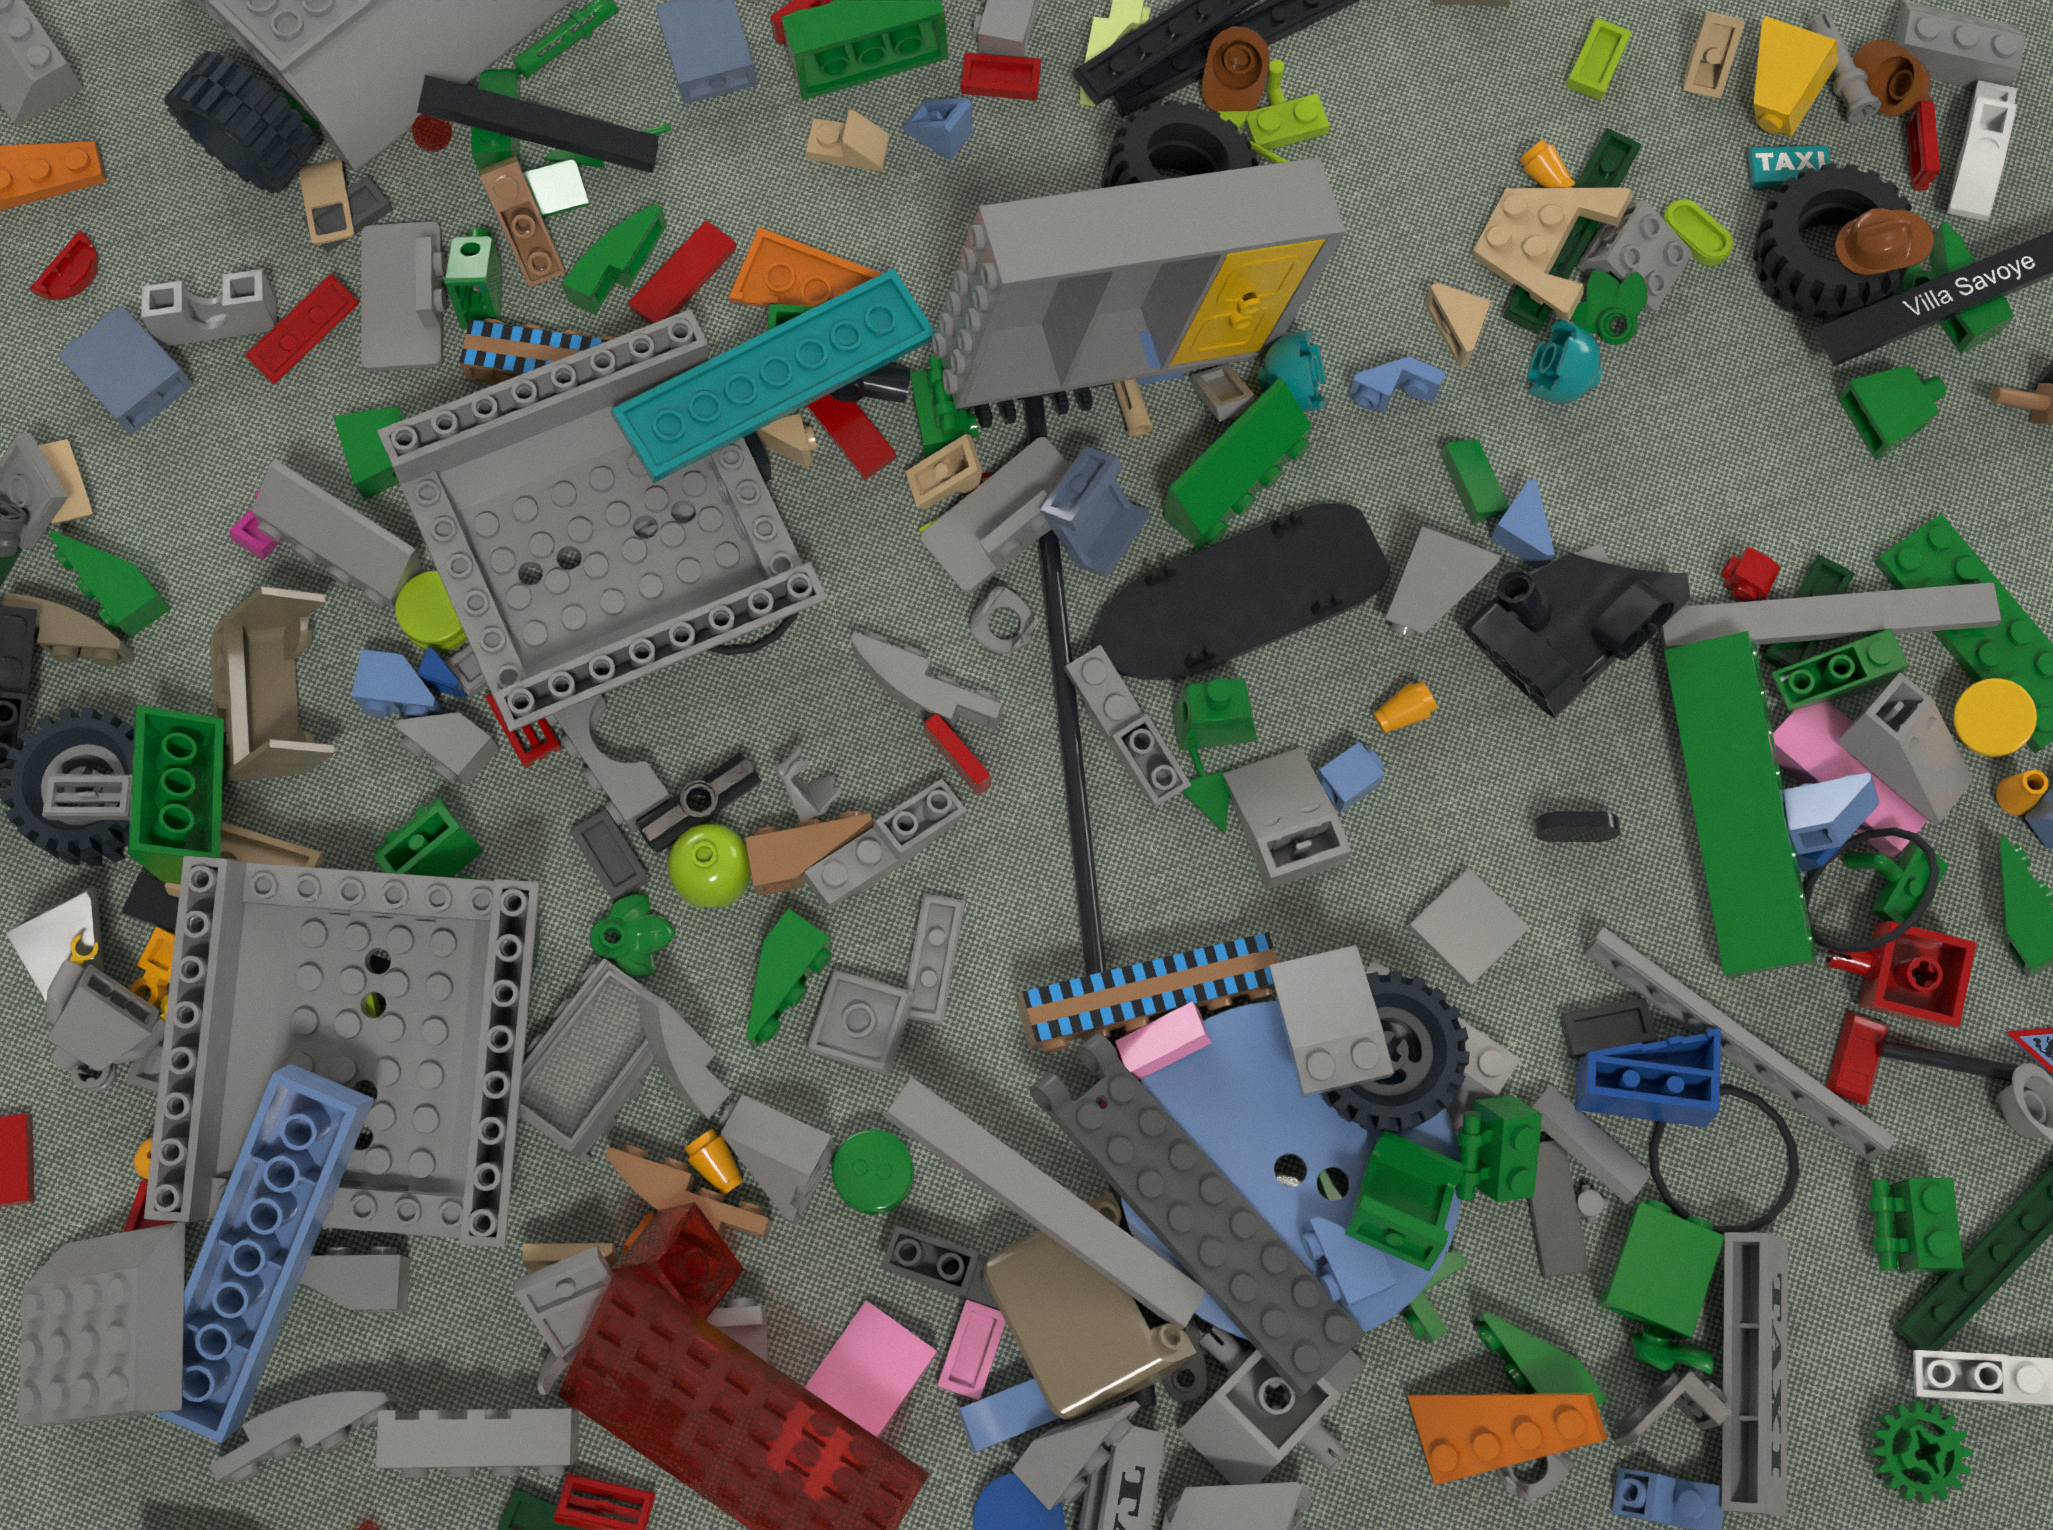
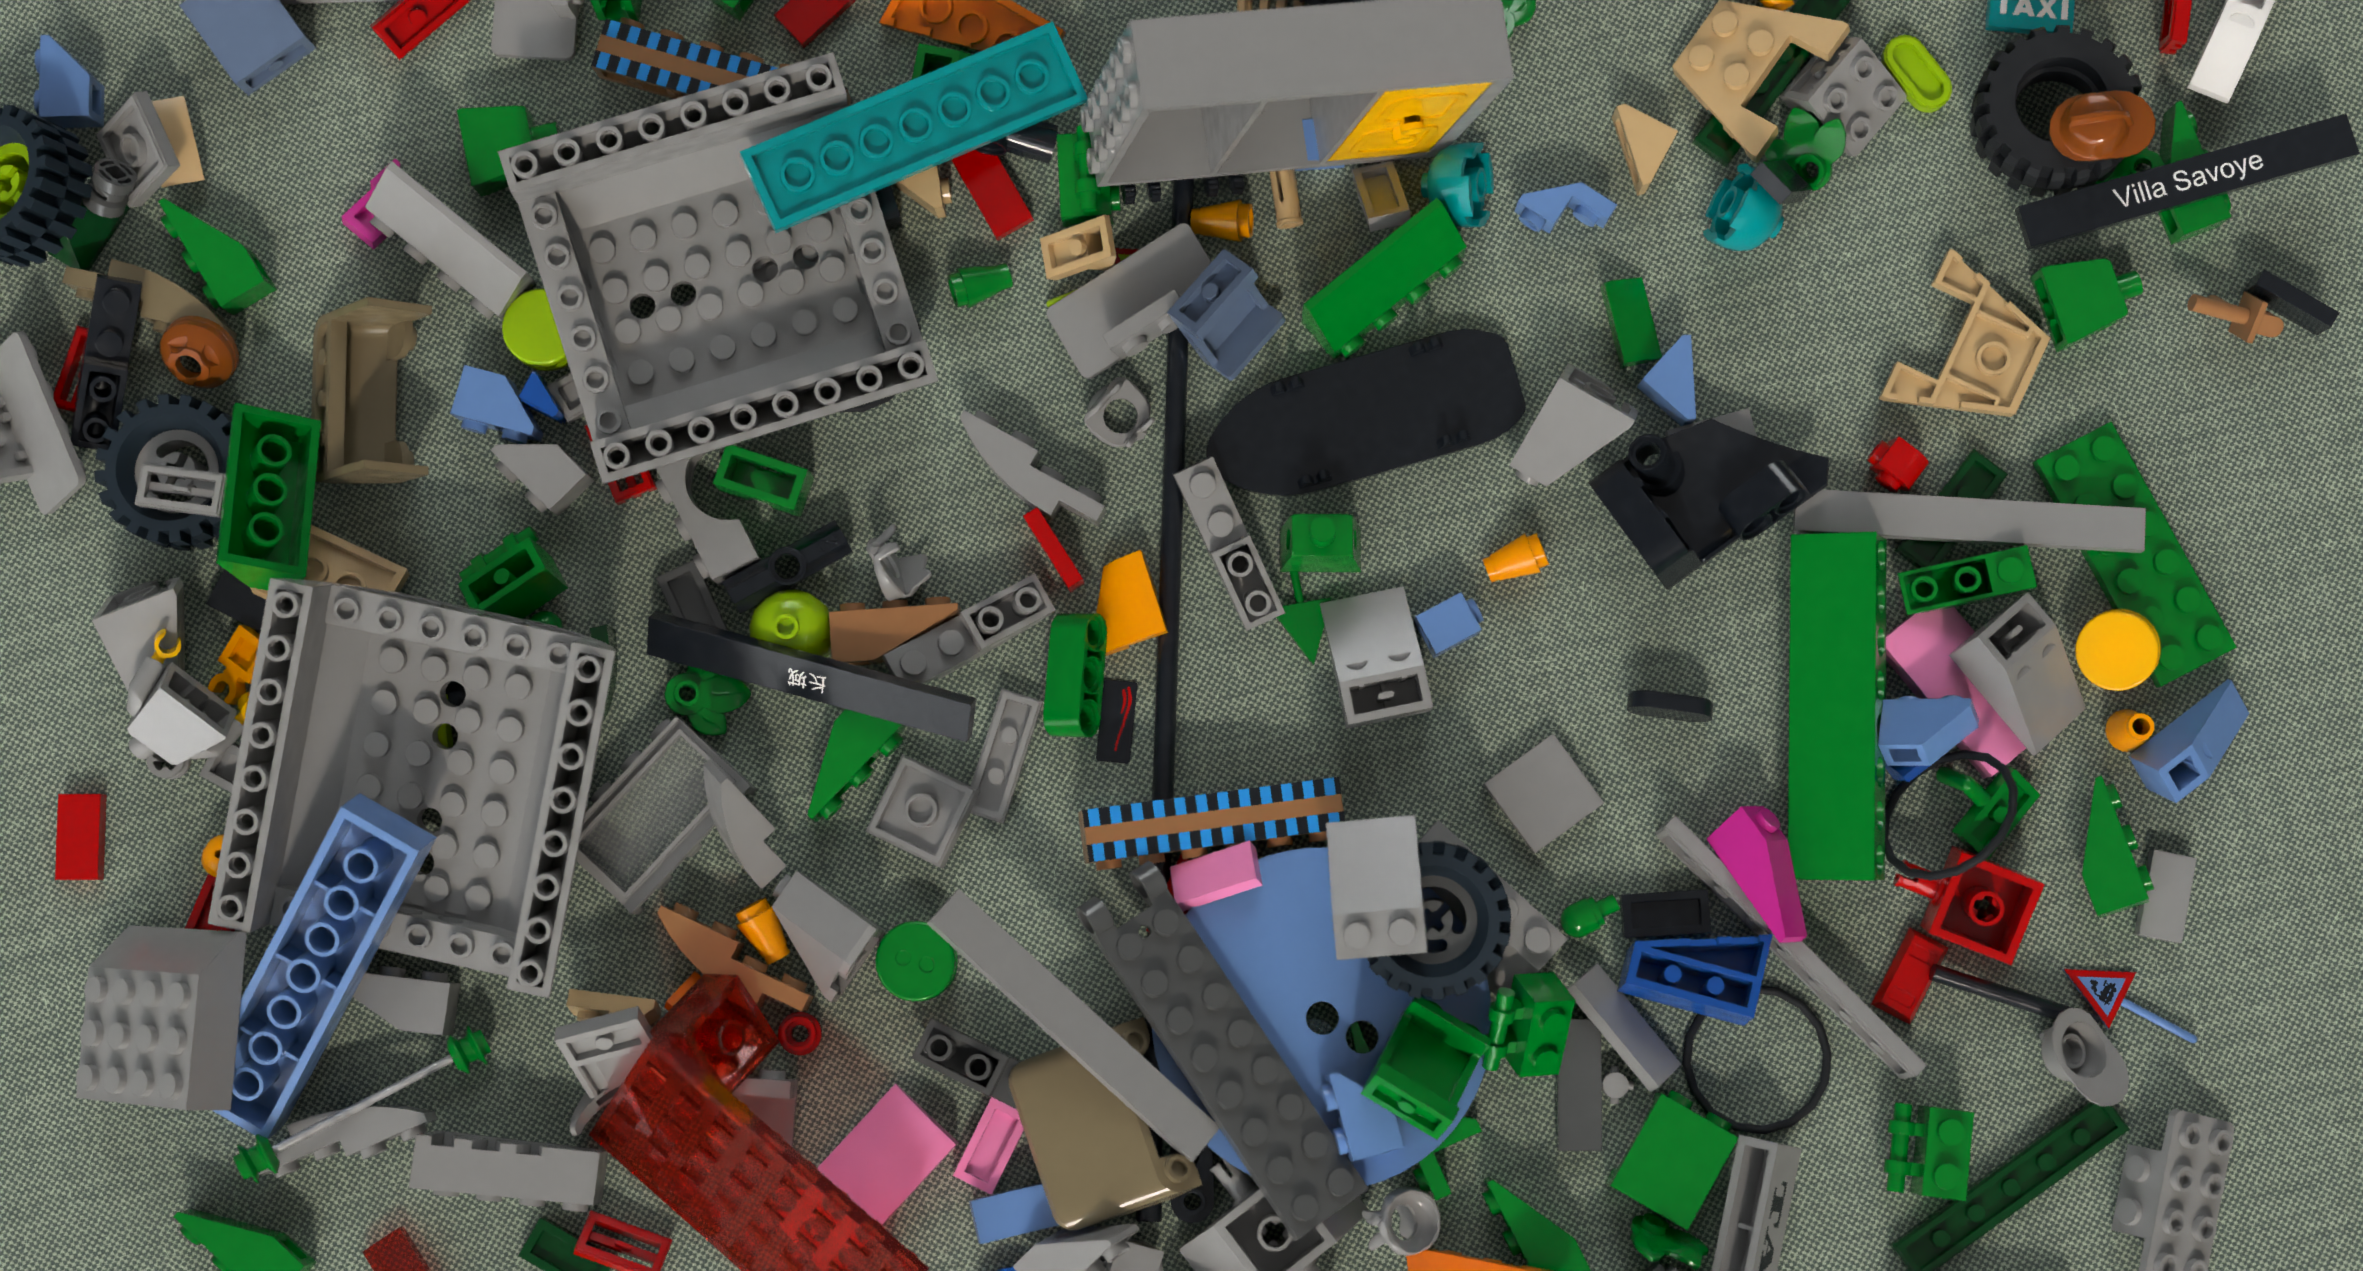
camera: 15 degrees right, 10 degrees up
(107, 660) = (205, 343): none -> dark orange piece
(220, 1456) = (264, 1154): none -> axle
(643, 721) = (742, 477): none -> green brick
(735, 899) = (811, 676): none -> black tile
(759, 1248) = (786, 1036): none -> red plate
(850, 519) = (976, 284): none -> green cone
(994, 870) = (1075, 675): none -> green beam
(1035, 800) = (1129, 603): none -> light orange slope
(1040, 913) = (1116, 721): none -> black sticker
(1078, 432) = (1224, 220): none -> light orange cone
(1416, 1364) = (1418, 1221): none -> light grey piece
(1533, 1038) = (1587, 915): none -> green cylinder
(1596, 331) = (1781, 181): none -> black tile
(1696, 961) = (1763, 868): none -> dark pink slope
(1816, 469) = (1989, 358): none -> tan wing

